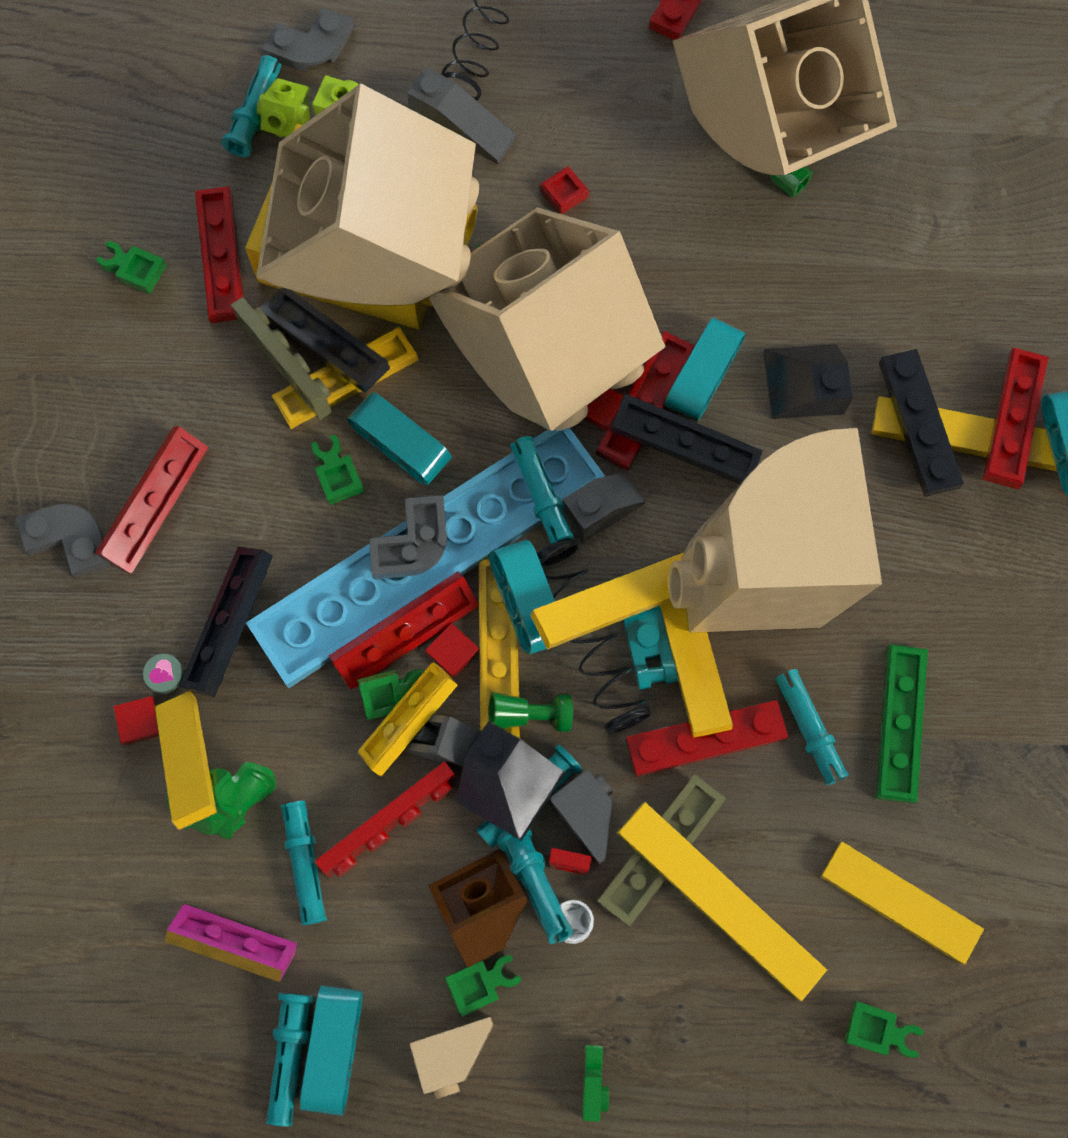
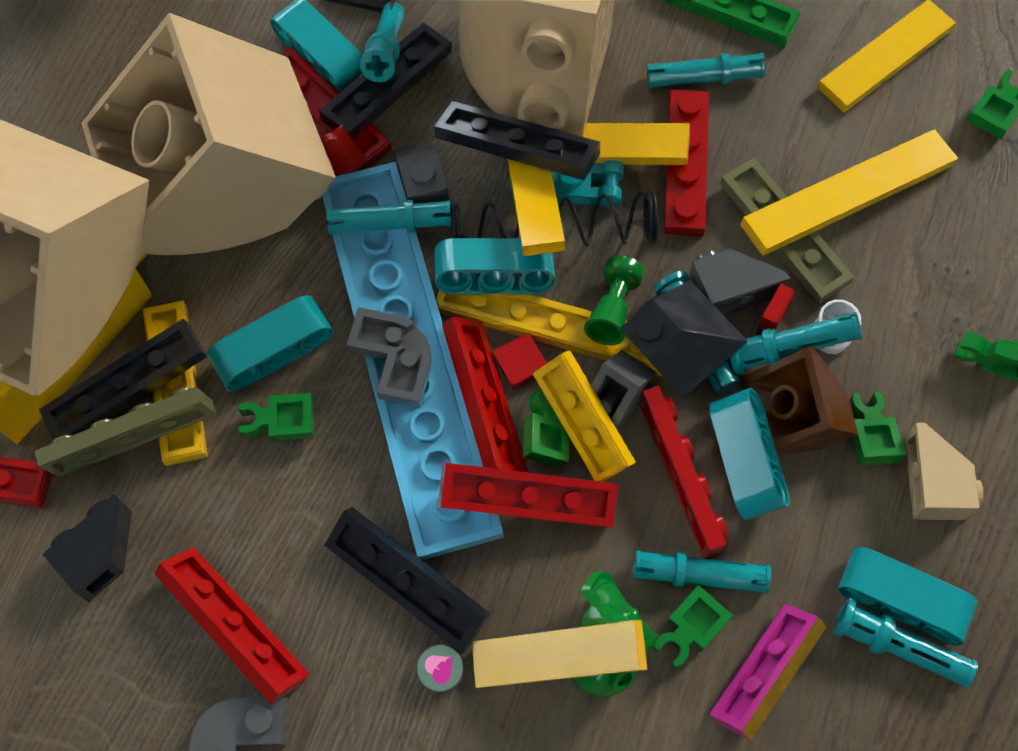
camera: 70 degrees left, 5 degrees down
(136, 720) = (484, 713): red tile -> none
(181, 375) = (94, 549): none -> black slope
(256, 871) = (696, 623): none -> green plate
(320, 694) = (527, 495): none -> red plate
(419, 873) = (749, 454): none -> teal beam
(564, 190) = (64, 112): red tile -> none
(595, 427) = (342, 151): none -> red slope
(648, 573) = (518, 140): none -> black plate
(709, 423) = (382, 47): none -> teal pin

